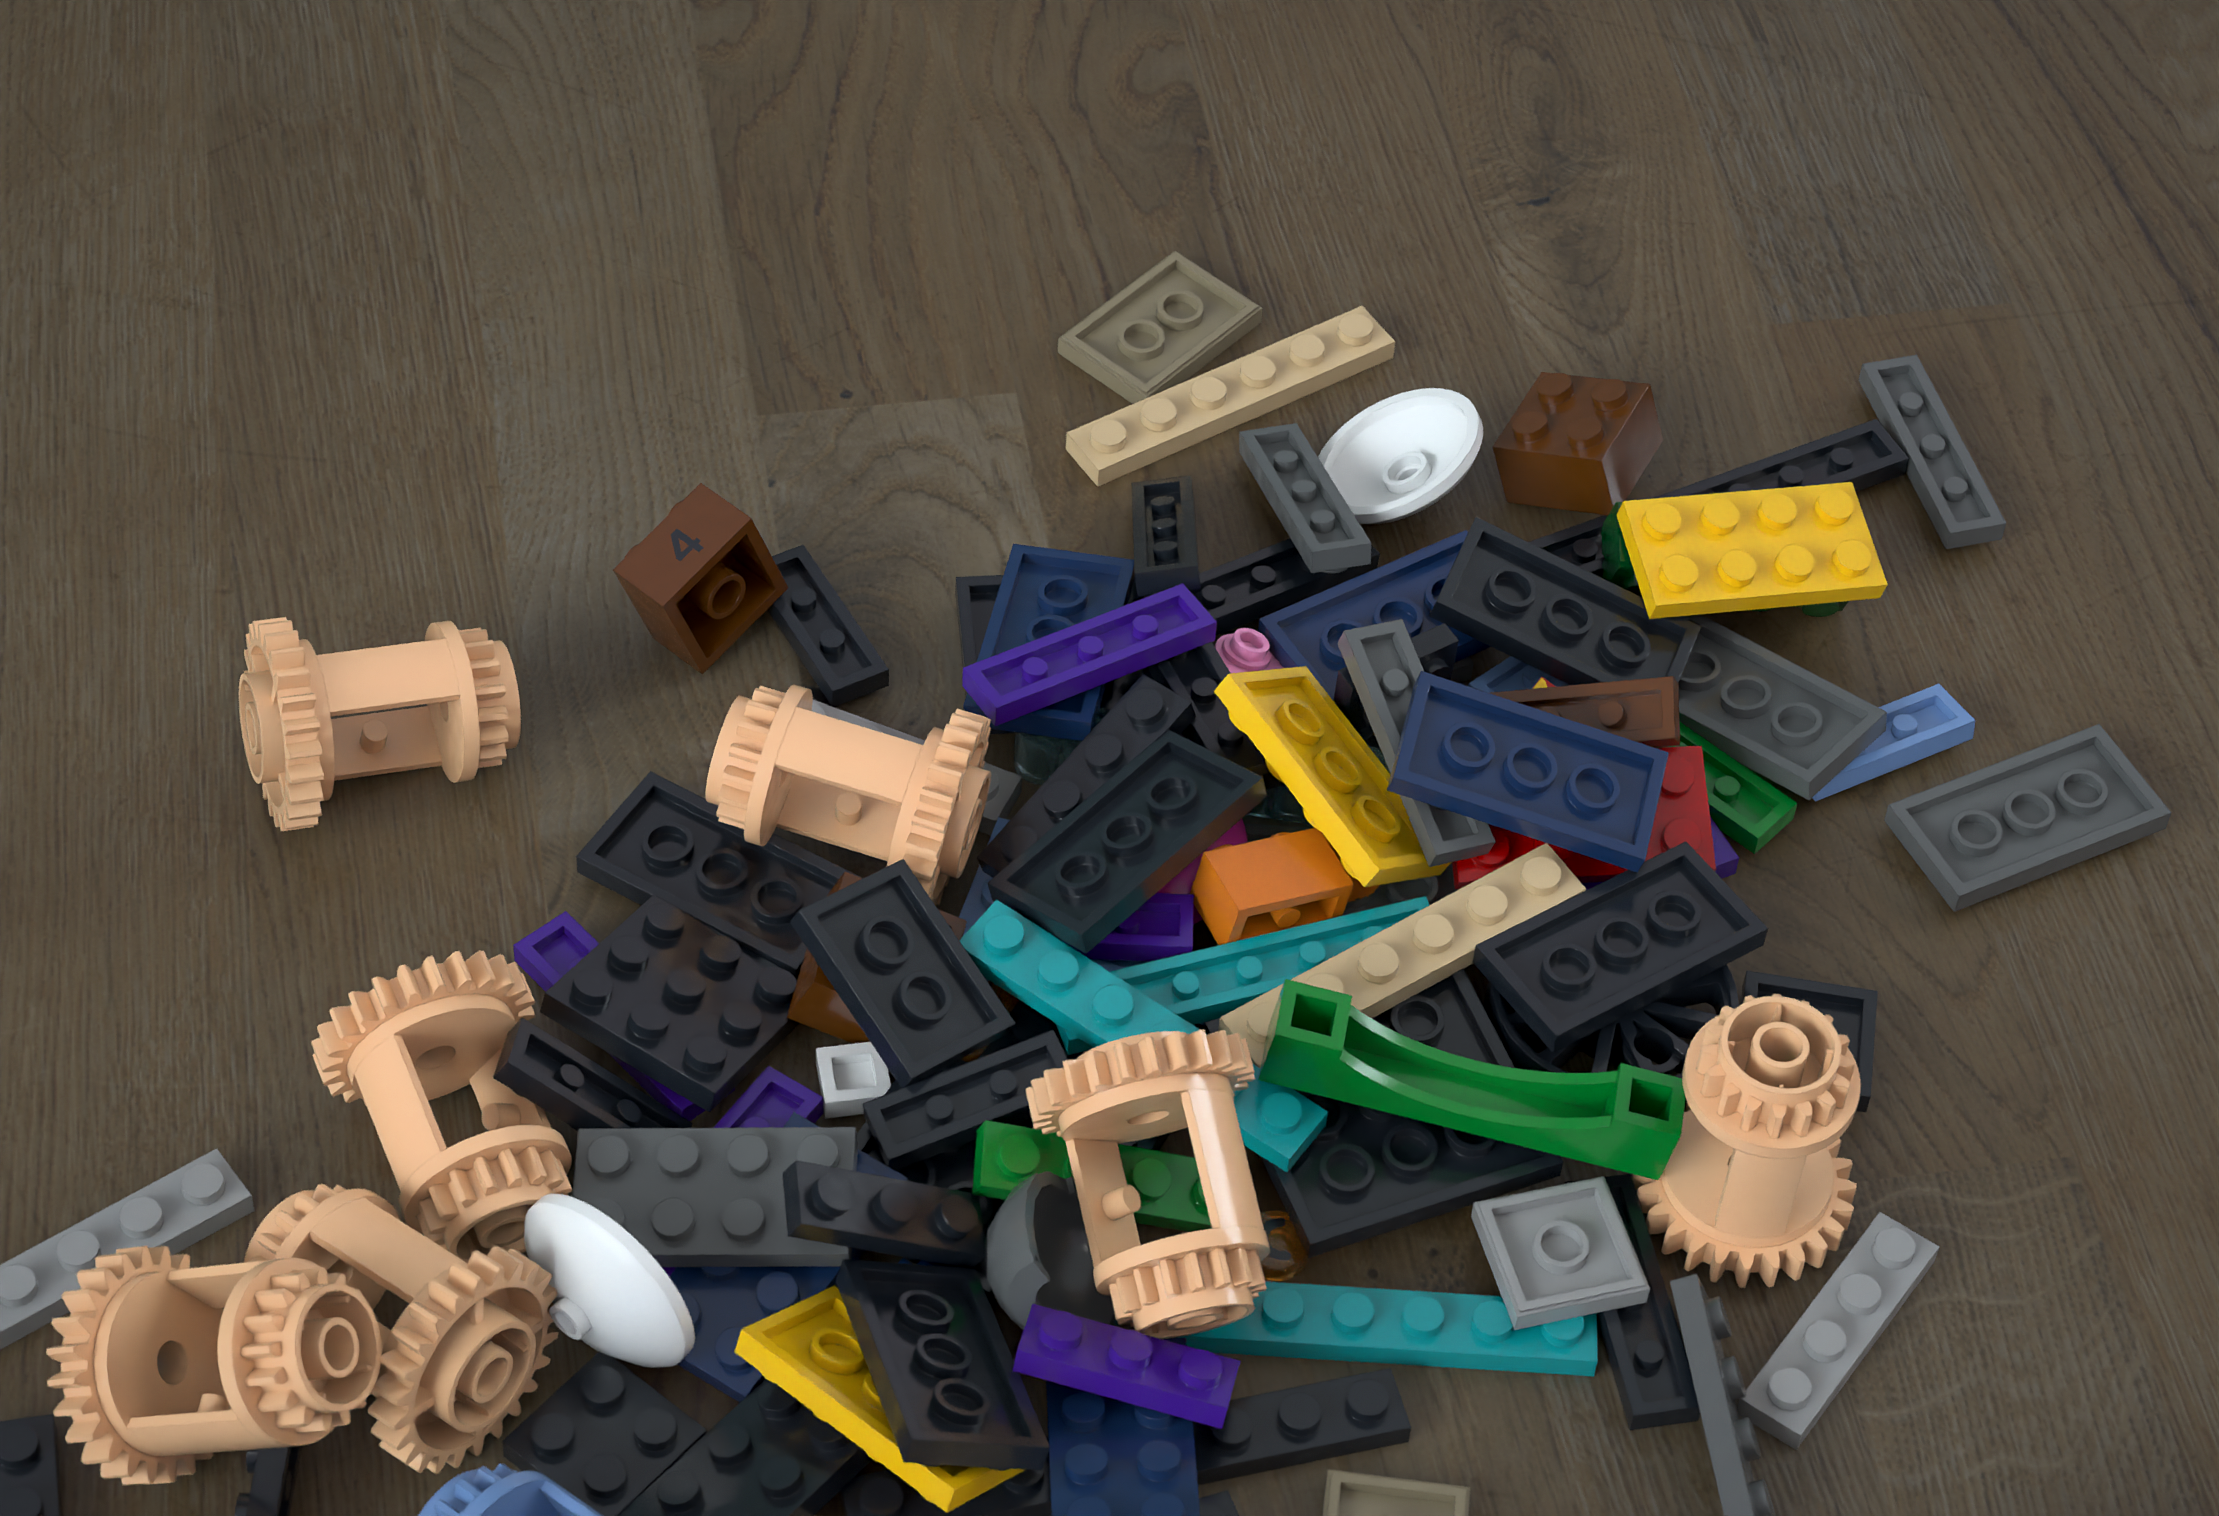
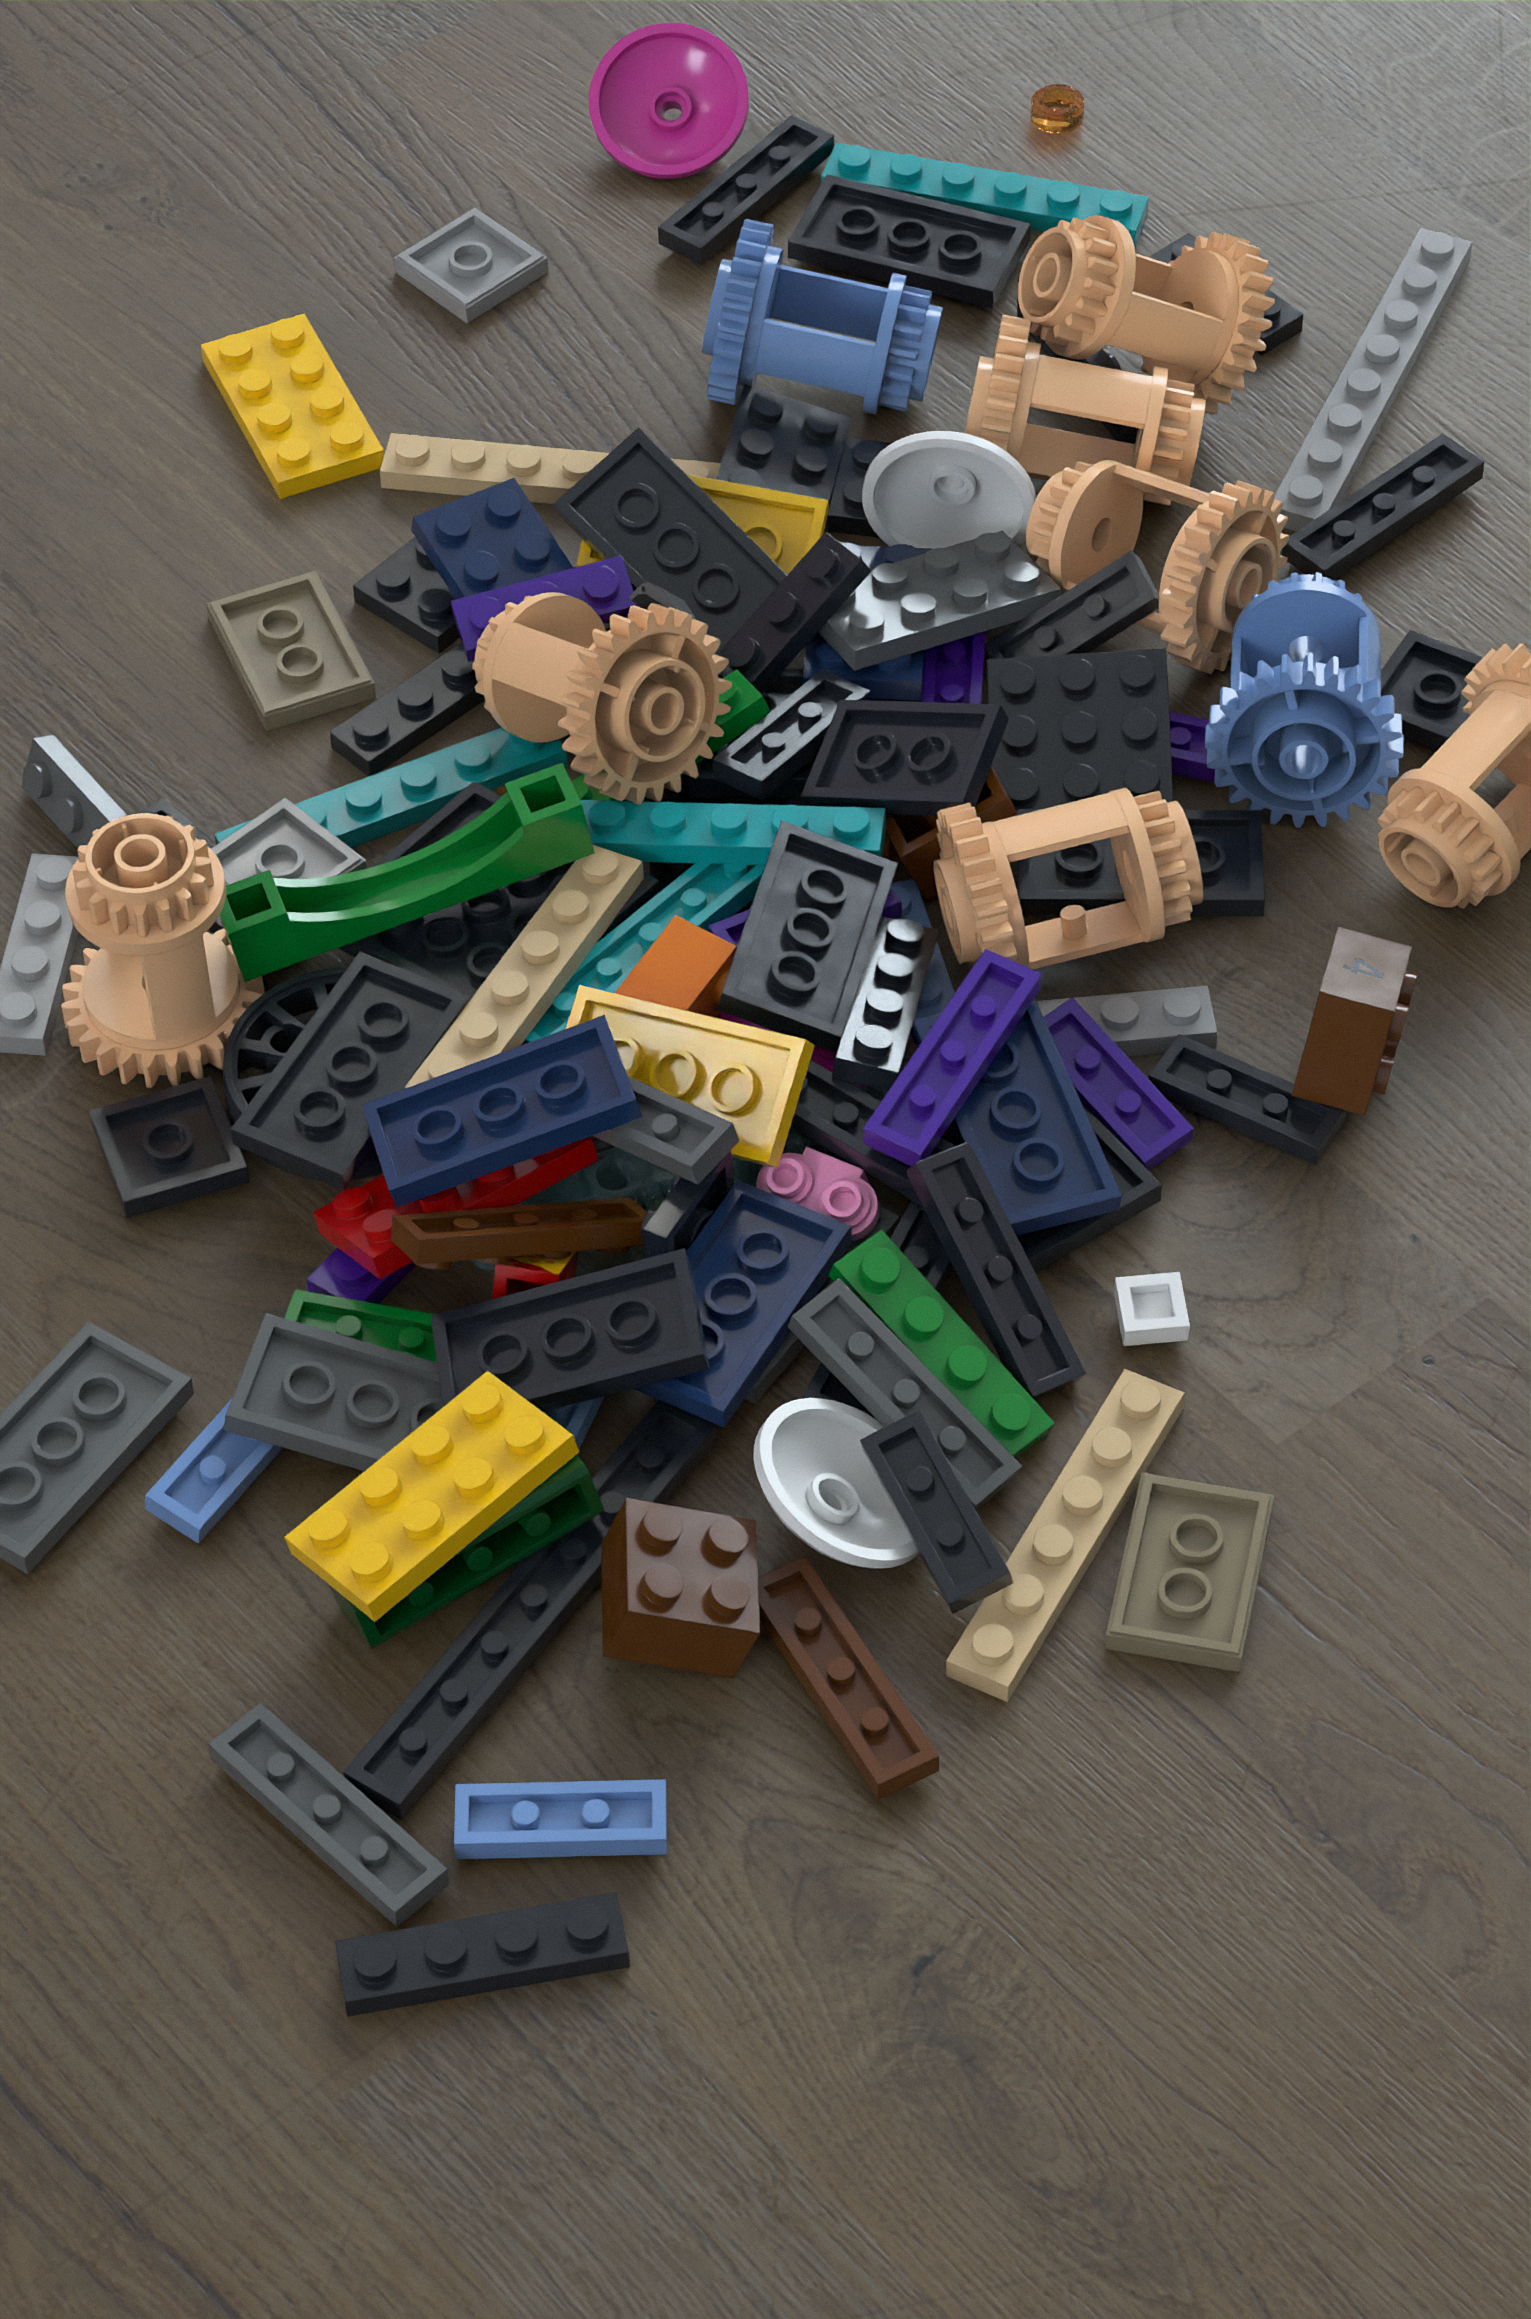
camera: 155 degrees right, 0 degrees up
(142, 1130) = (1384, 508): none -> black plate
(298, 903) = (1427, 687): none -> black plate
(500, 825) = (1305, 704): none -> medium blue piece
(927, 667) = (1116, 1088): none -> dark purple plate
(1040, 502) = (1151, 1308): none -> white plate
(1245, 526) = (942, 1342): none -> green plate
(1341, 404) = (936, 1512): none -> black plate
(1482, 351) = (844, 1679): none -> reddish brown plate
(1754, 370) = (560, 1819): none -> medium blue plate
(1855, 327) = (482, 1954): none -> black plate

